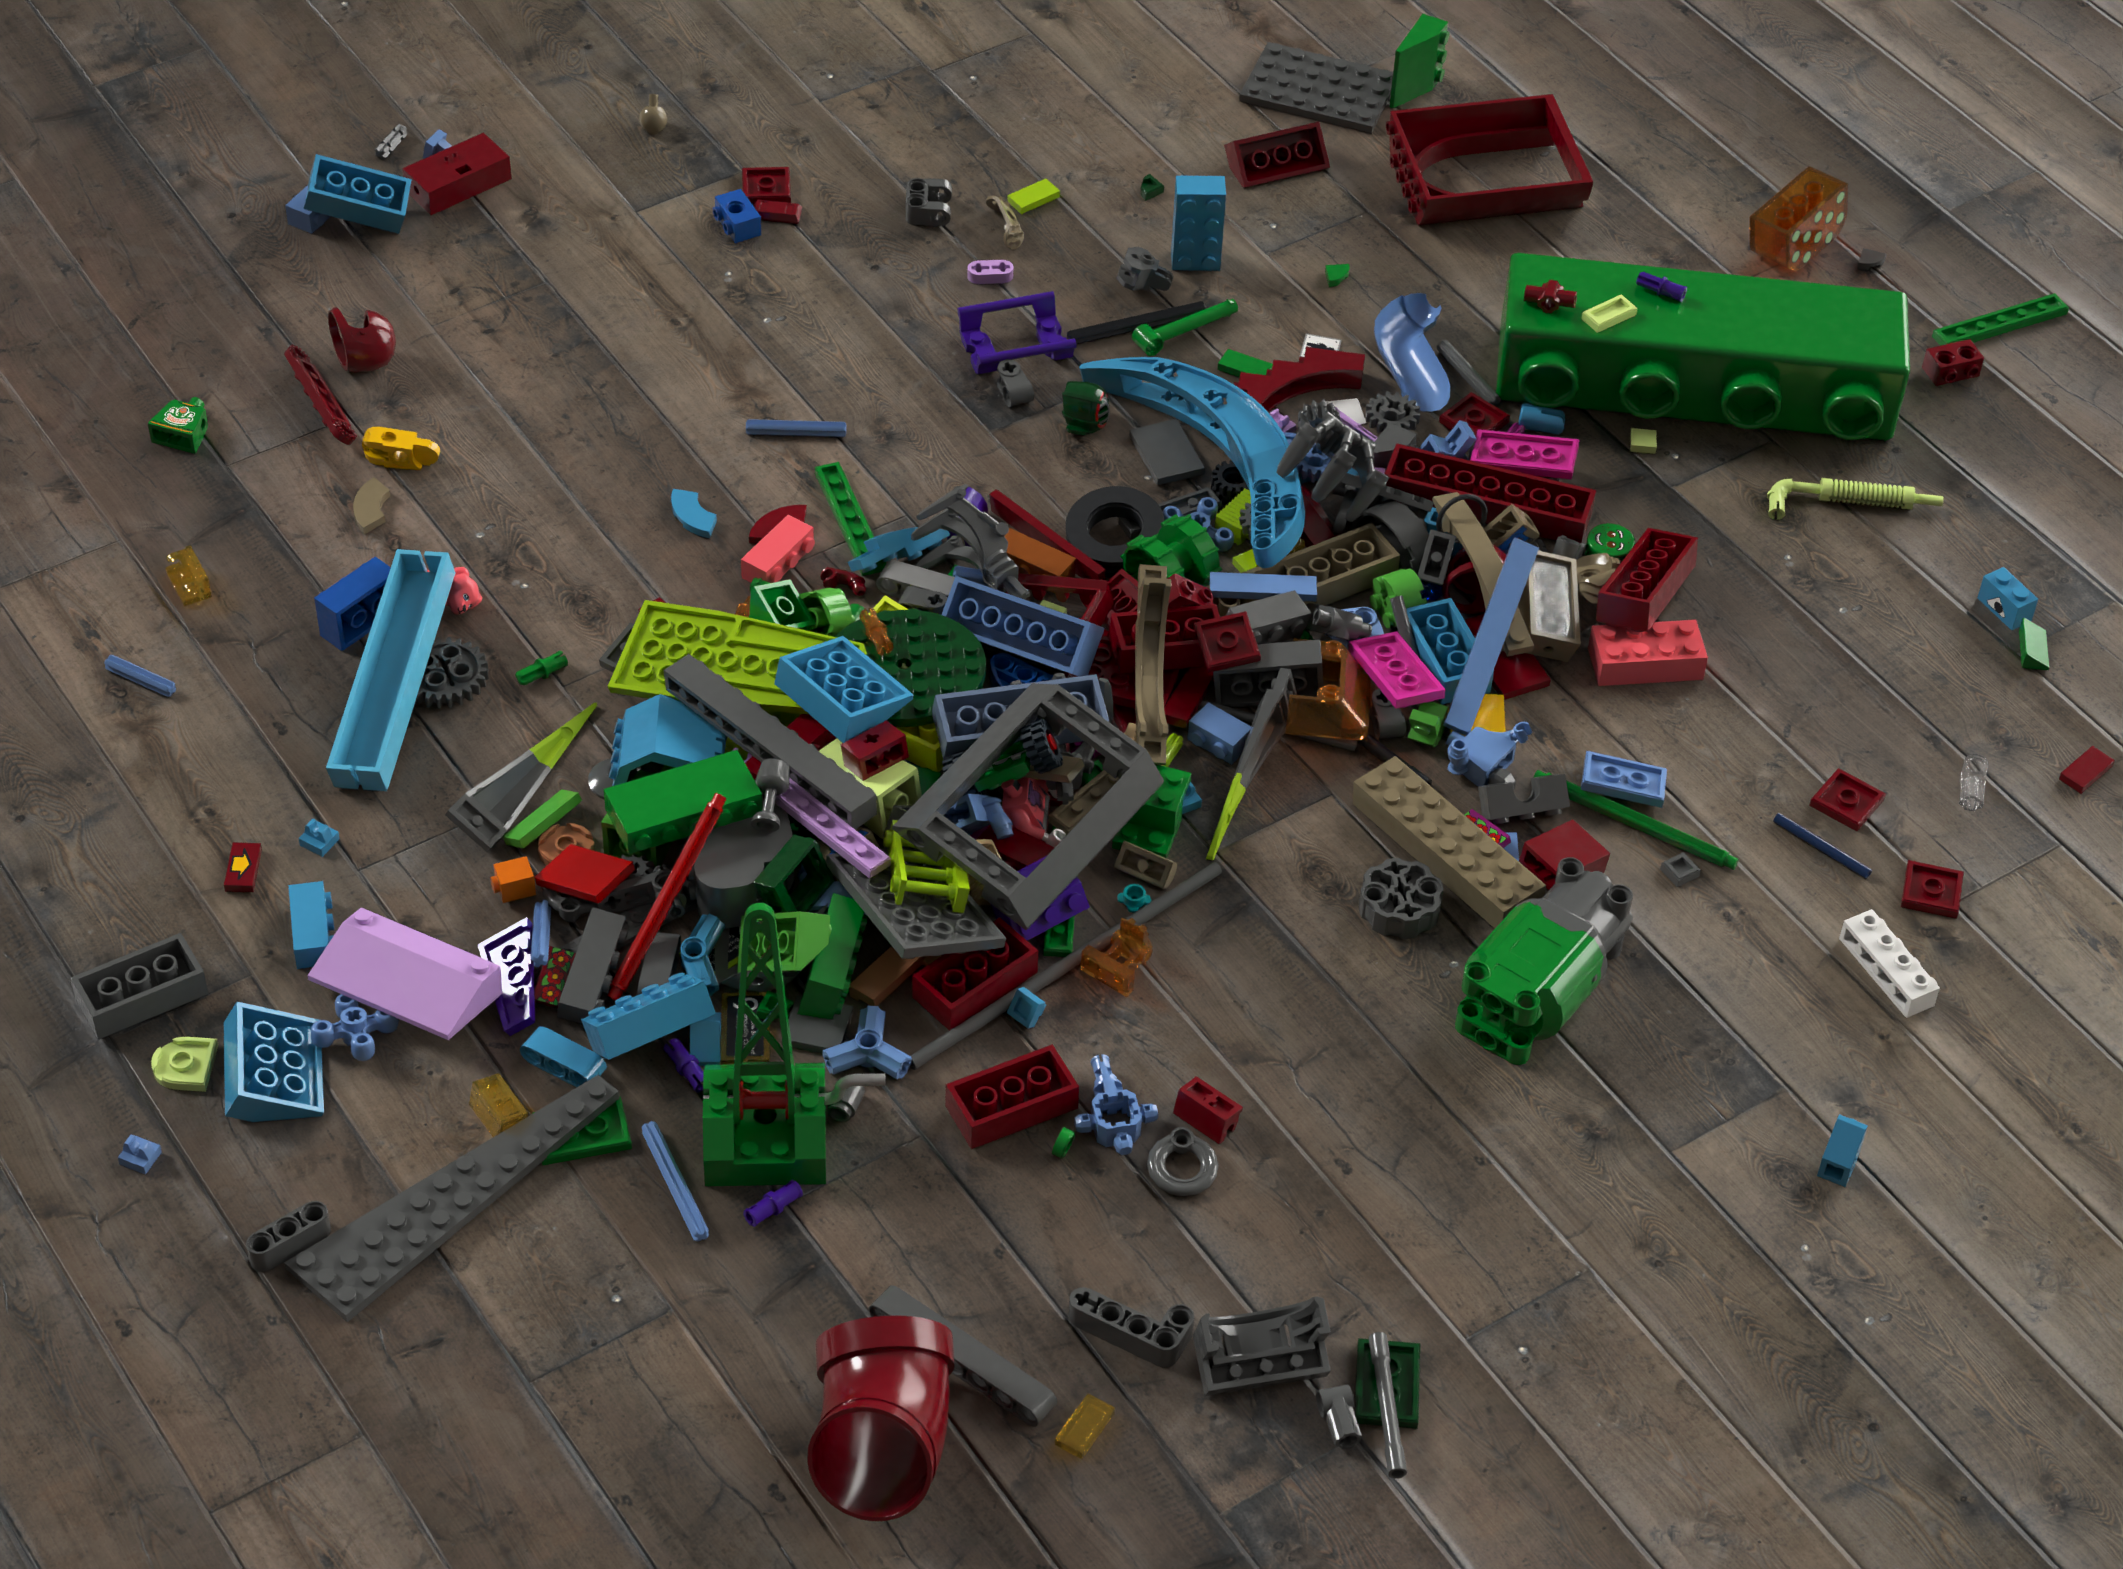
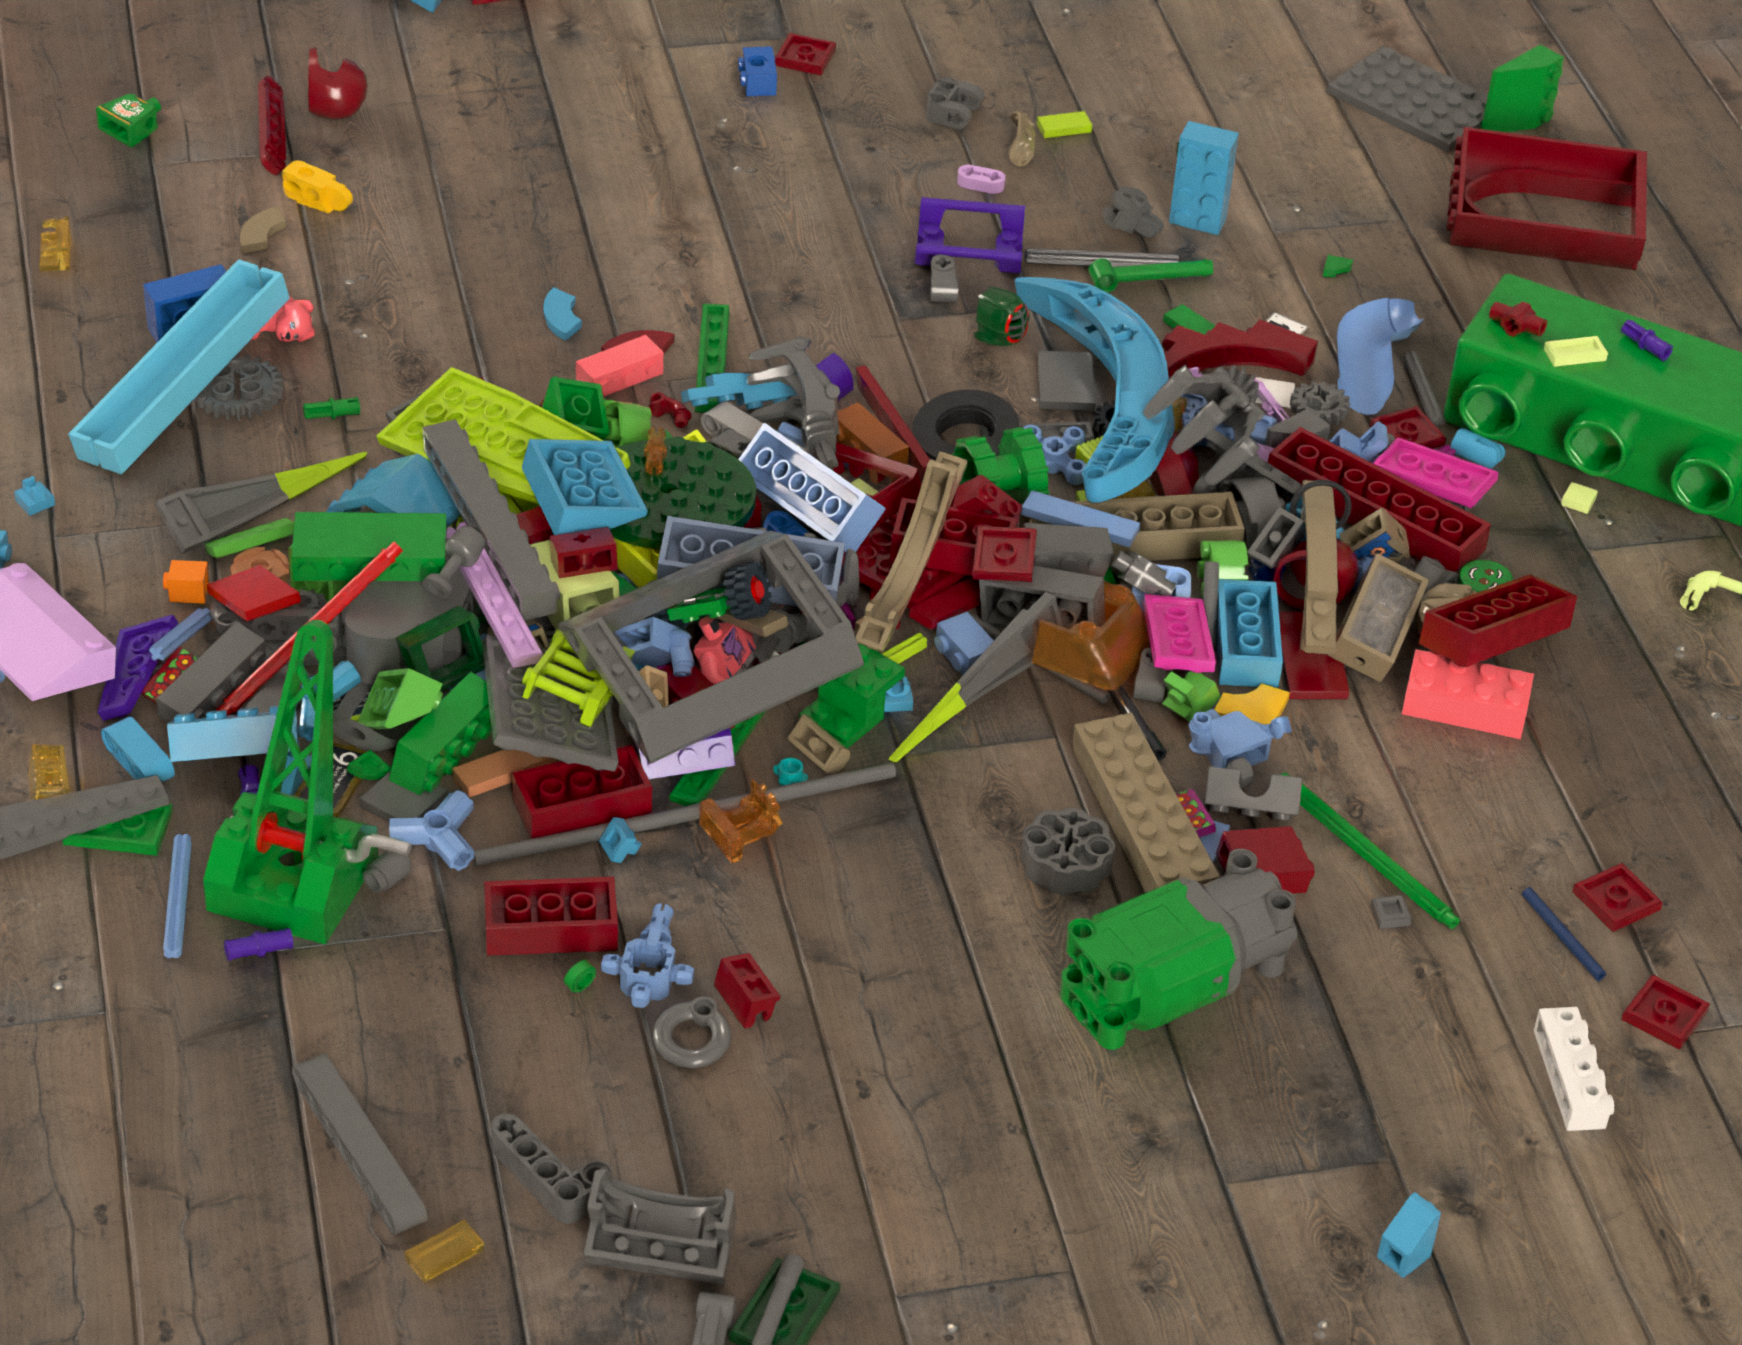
camera: 20 degrees right, 5 degrees down
(778, 211) = (802, 78): dark red tile -> none
(796, 428) = (706, 266): medium blue axle -> none
(881, 1413) = (224, 1160): dark red cylinder -> none
(1278, 155) = (1334, 144): dark red slope -> none
(1490, 636) = (1290, 624): medium blue tile -> none
(1624, 779) = (1374, 806): medium blue tile -> none

